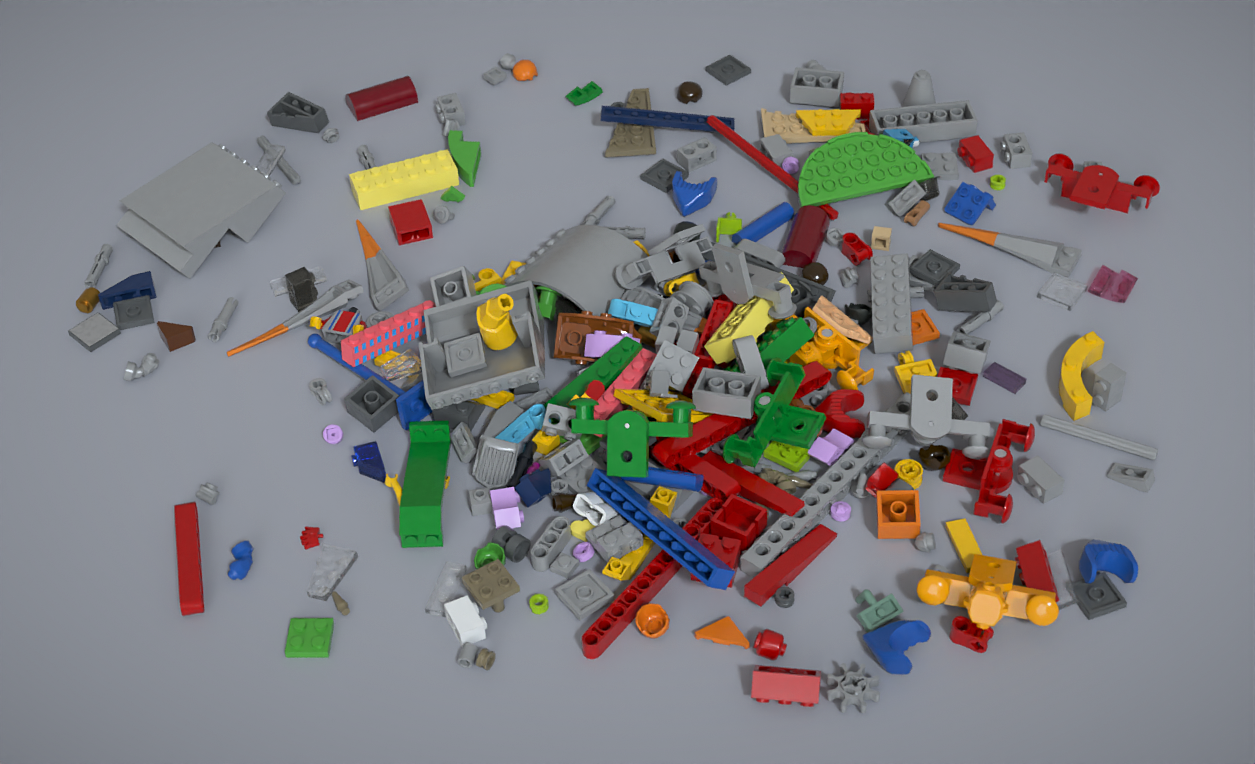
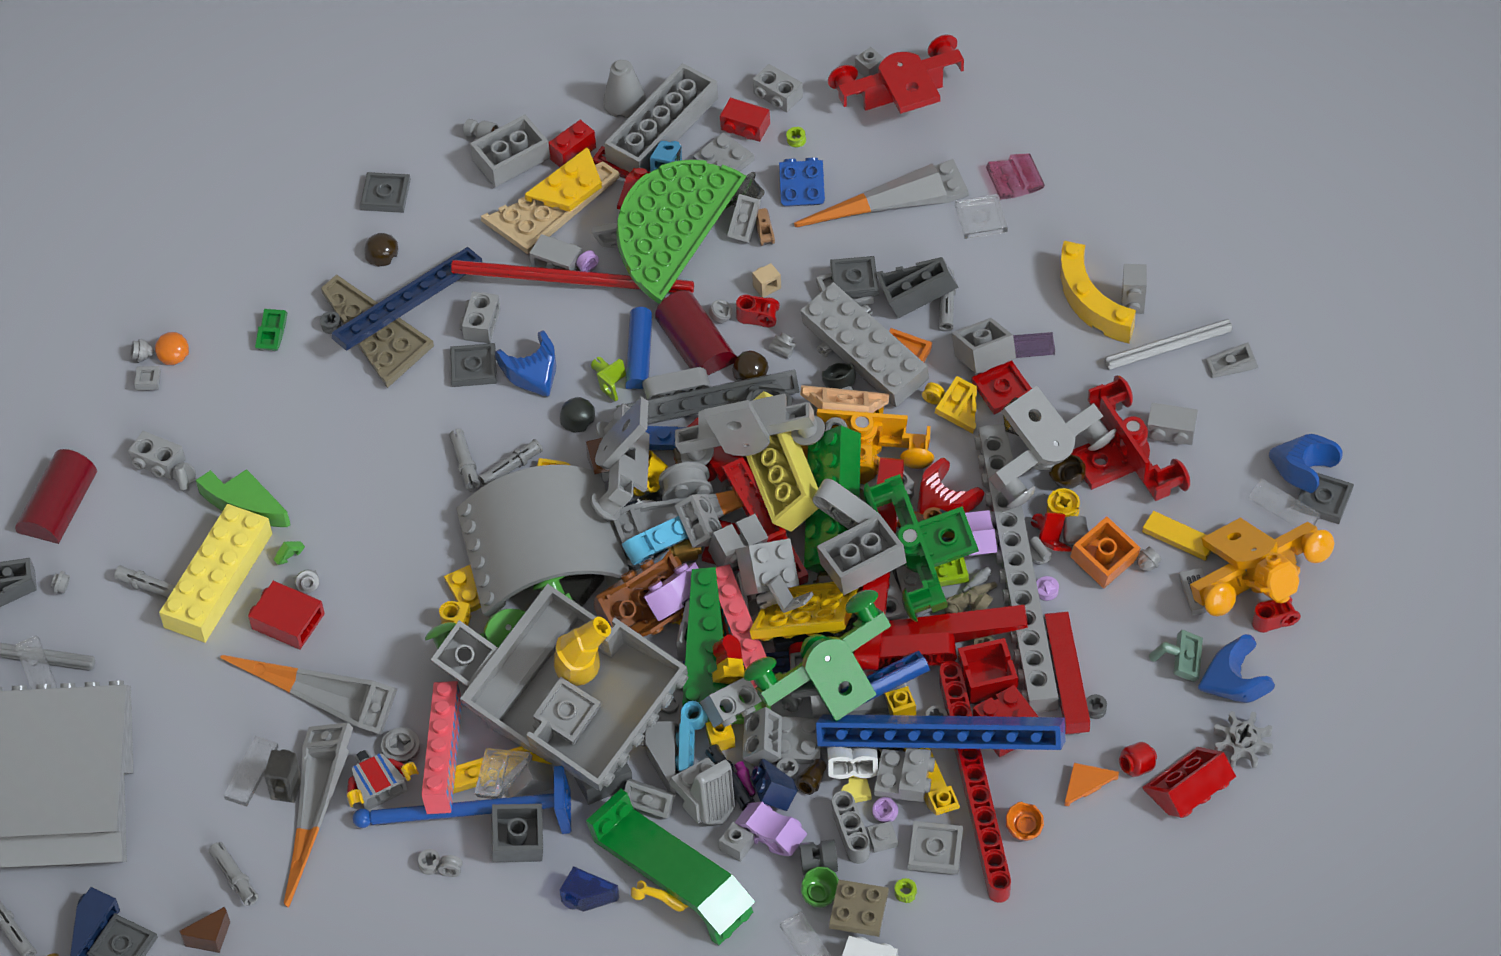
camera: 45 degrees left, 10 degrees up
(333, 434) = (512, 895): lavender tile -> none
(1035, 568) = (1263, 512): red brick -> none

